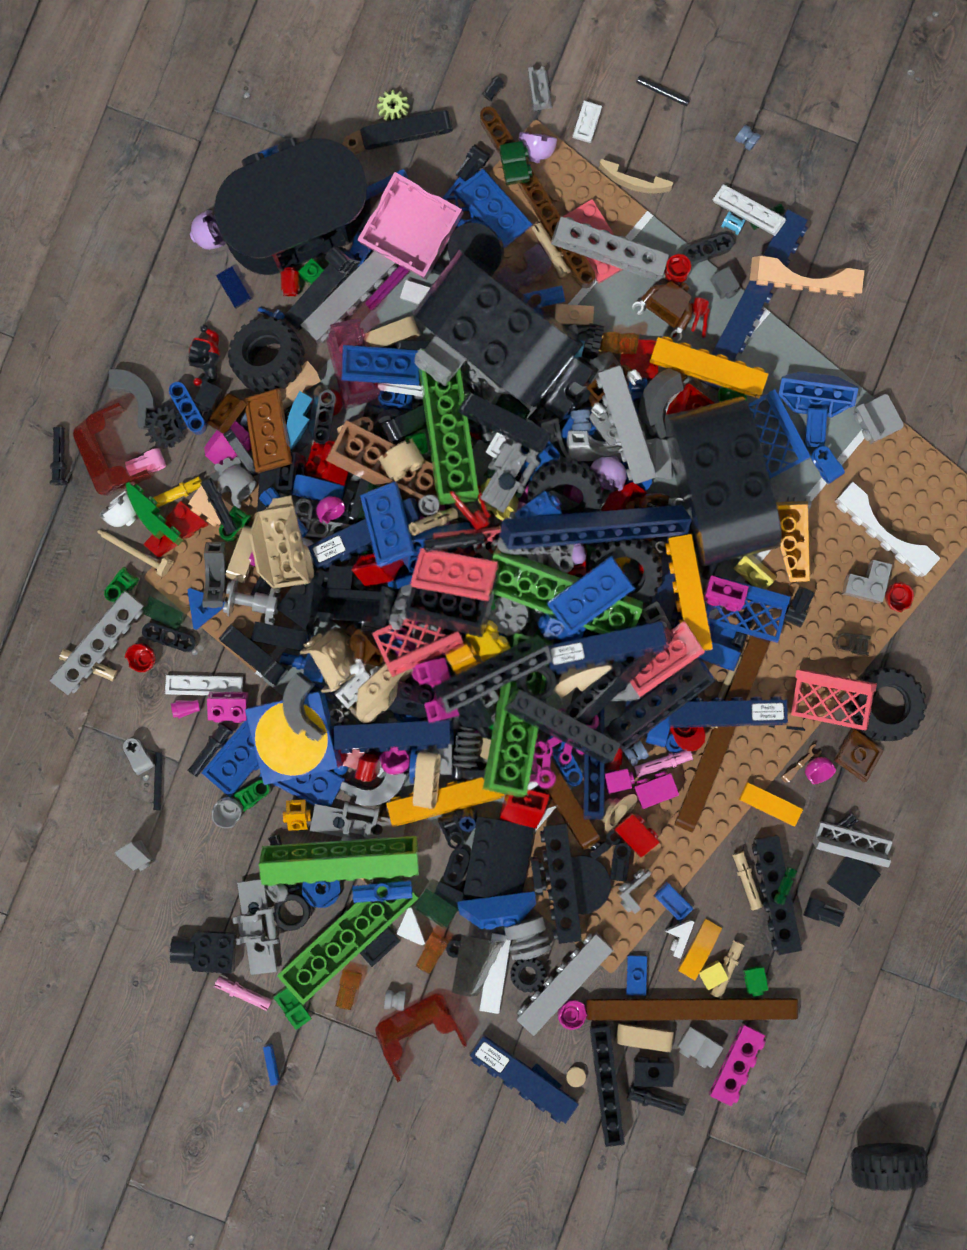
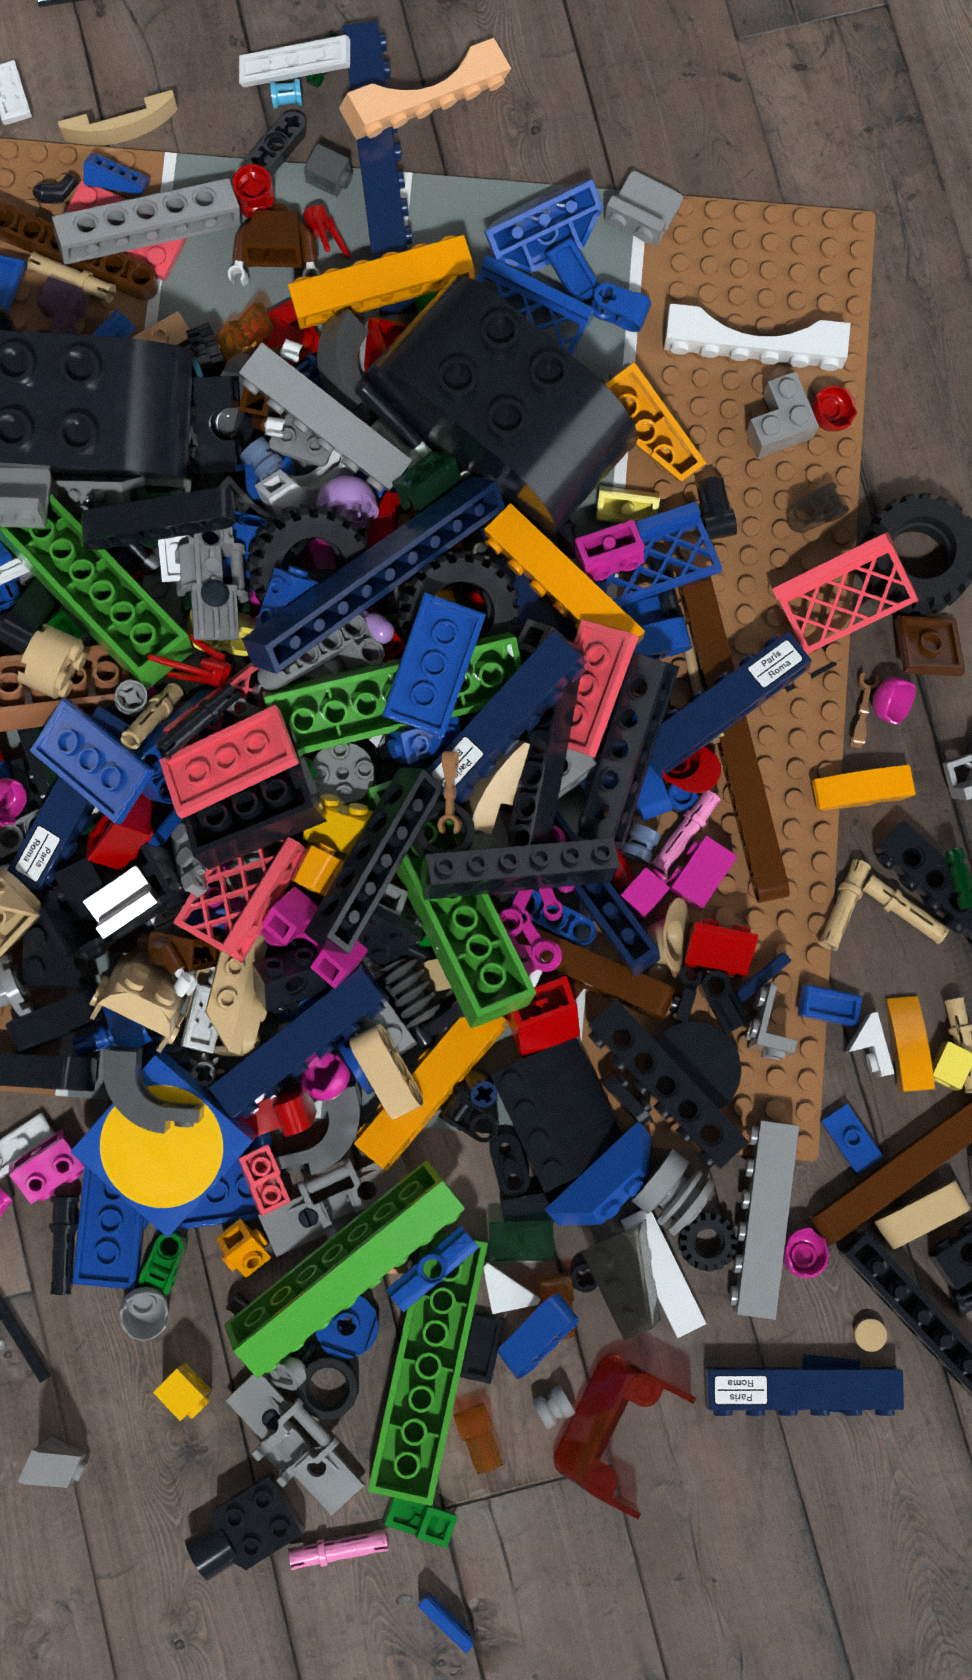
camera: 40 degrees left, 5 degrees down
(220, 865) = (183, 1392): none -> yellow brick
(329, 789) = (264, 1179): none -> coral slope
(354, 602) = (121, 900): none -> white panel
(411, 960) = (538, 1335): none -> blue beam
(562, 653) = (450, 766): none -> medium nougat piece
(572, 196) = (55, 193): none -> black arm
(610, 209) = (111, 175): none -> blue slope
(650, 863) = (762, 977): none -> dark blue tile
(657, 493) = (427, 481): none -> clear green hinge
(663, 442) = (386, 411): none -> black piece
(720, 855) = (849, 894): none -> tan pin

